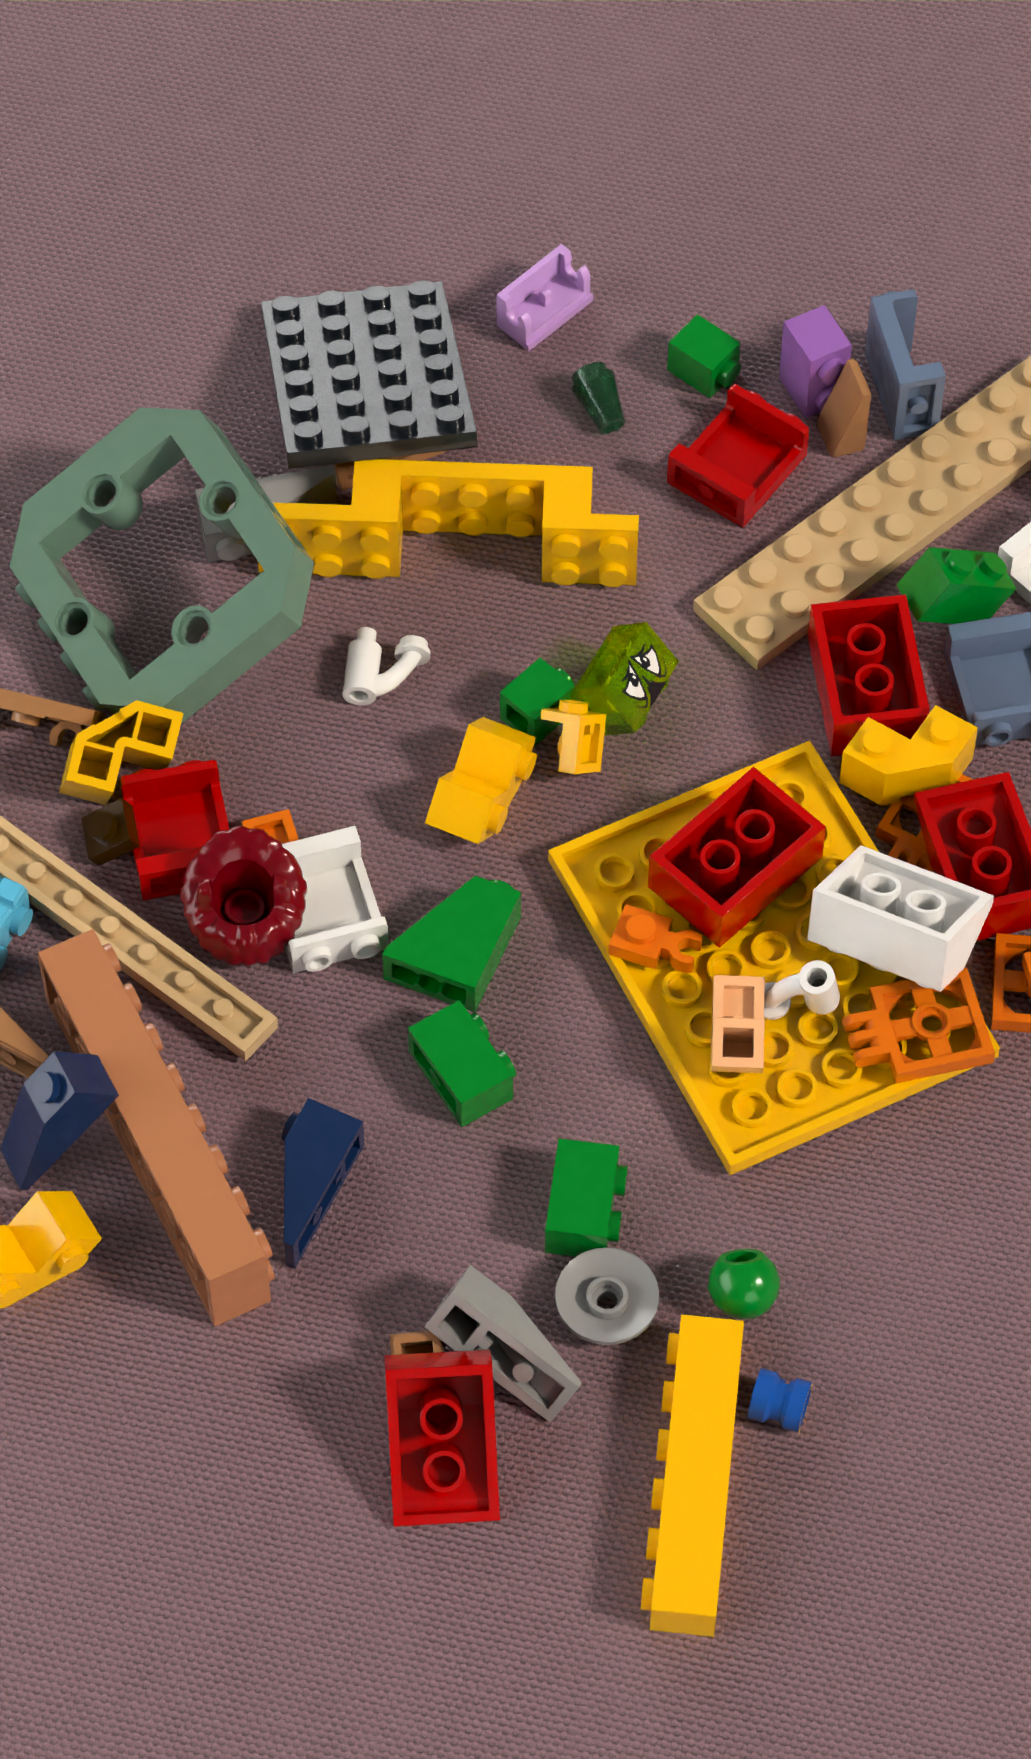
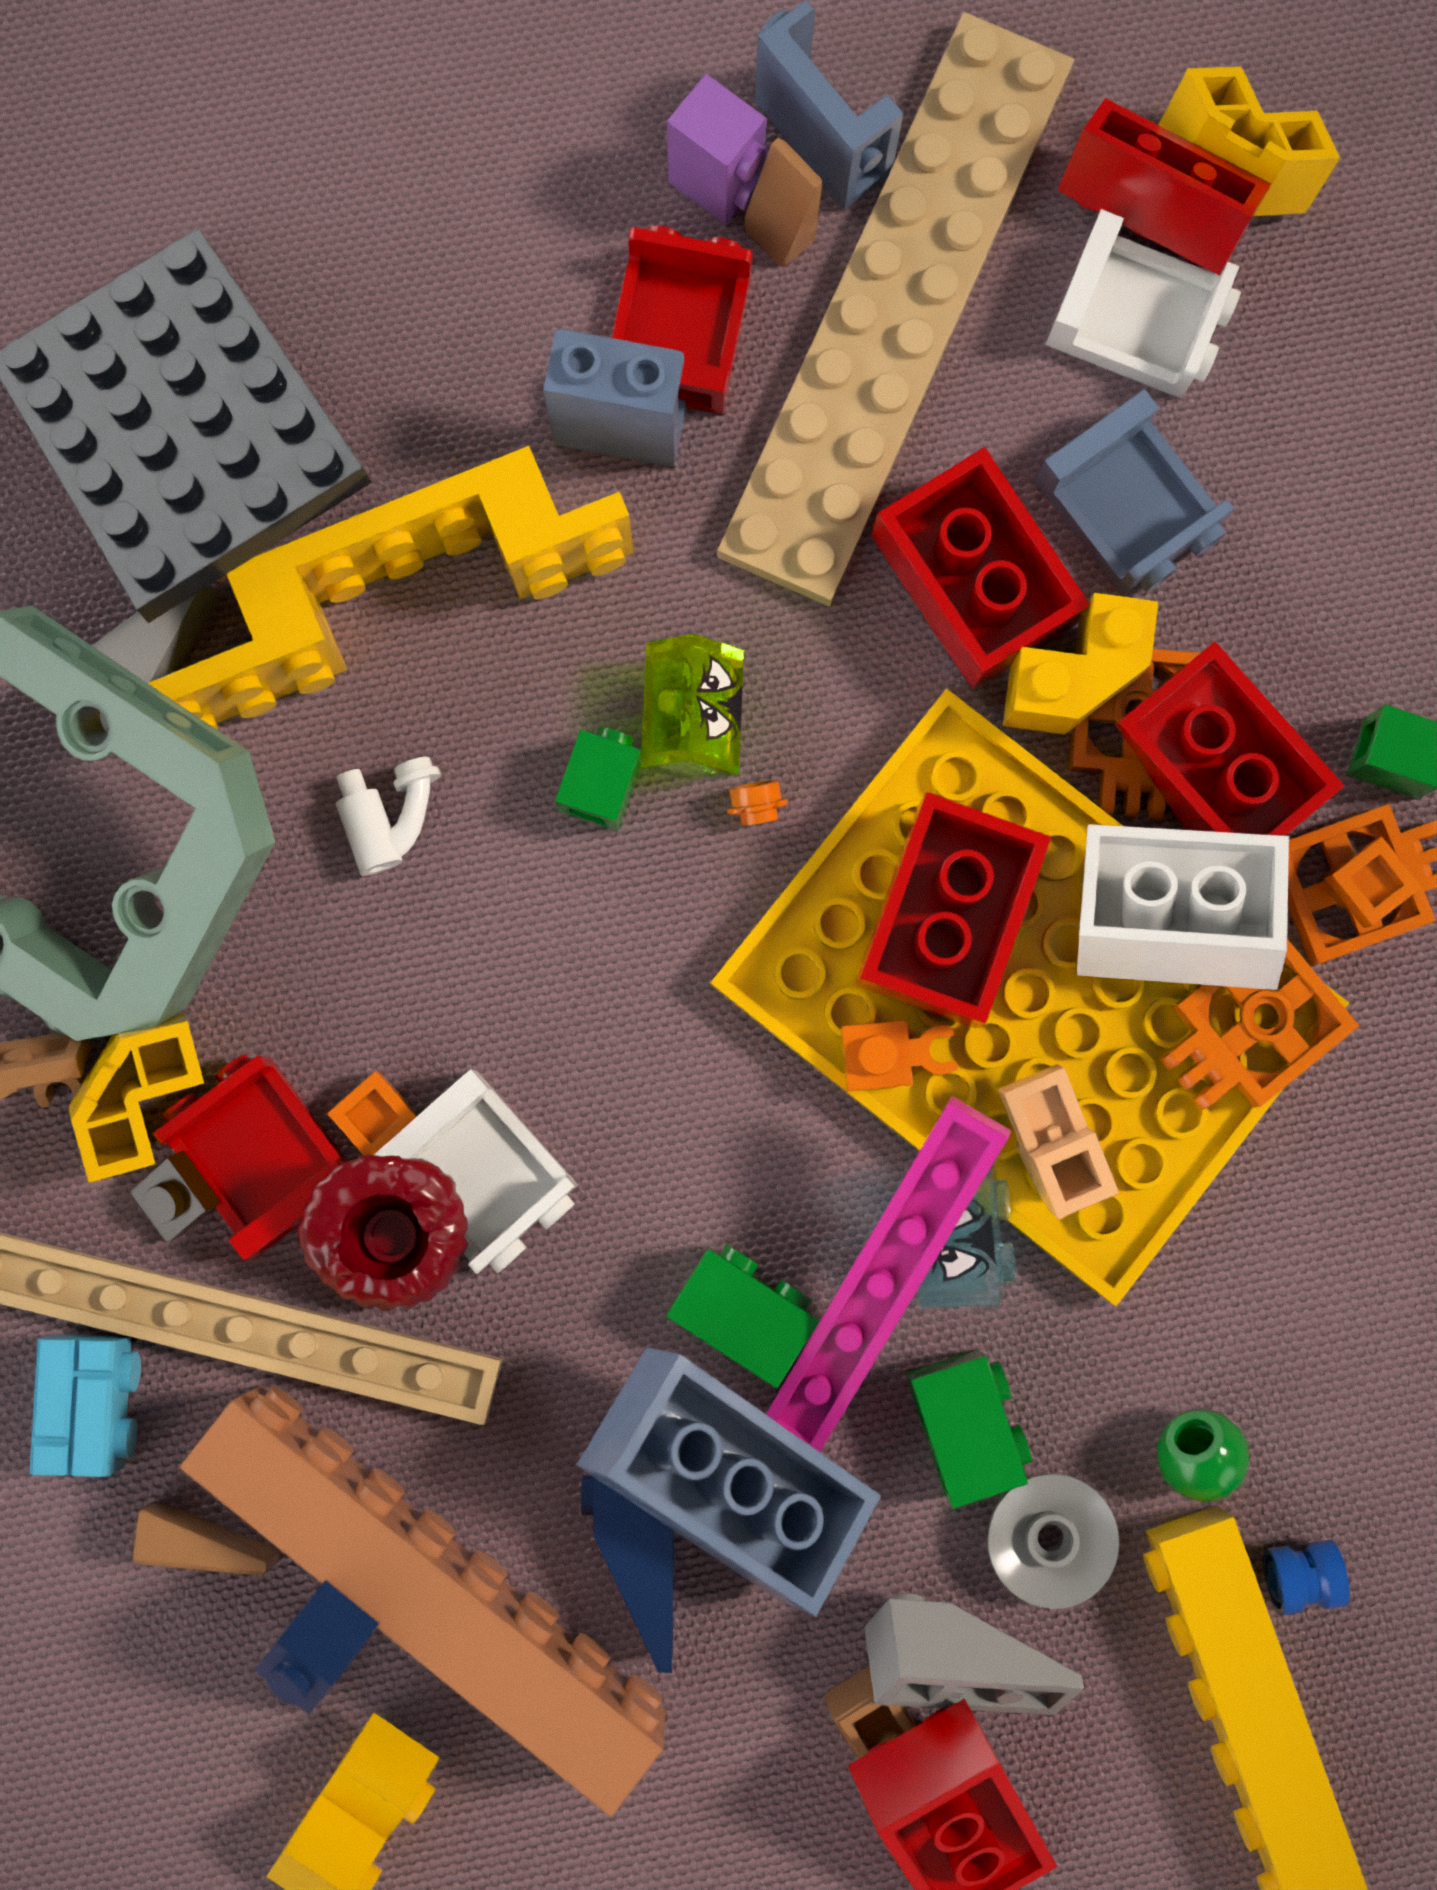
camera: 30 degrees left, 25 degrees up
(399, 1131) = (730, 1479): none -> sand blue brick
(457, 943) = (665, 1155): green slope -> none
(487, 774) = (588, 927): yellow brick -> none
(543, 298) = (336, 199): lavender hinge -> none
(569, 1059) = (888, 1272): none -> dark pink plate
(581, 737) = (678, 812): yellow bracket -> none
(599, 395) = (470, 310): clear green cone -> none
(640, 759) = (756, 802): none -> orange plate
(641, 1065) = (974, 1259): none -> clear light blue brick
(665, 474) = (615, 397): none -> sand blue panel
(704, 356) = (572, 197): green brick -> none
(814, 982) = (1130, 1055): white plant -> none
(956, 585) = (1031, 401): green brick -> none

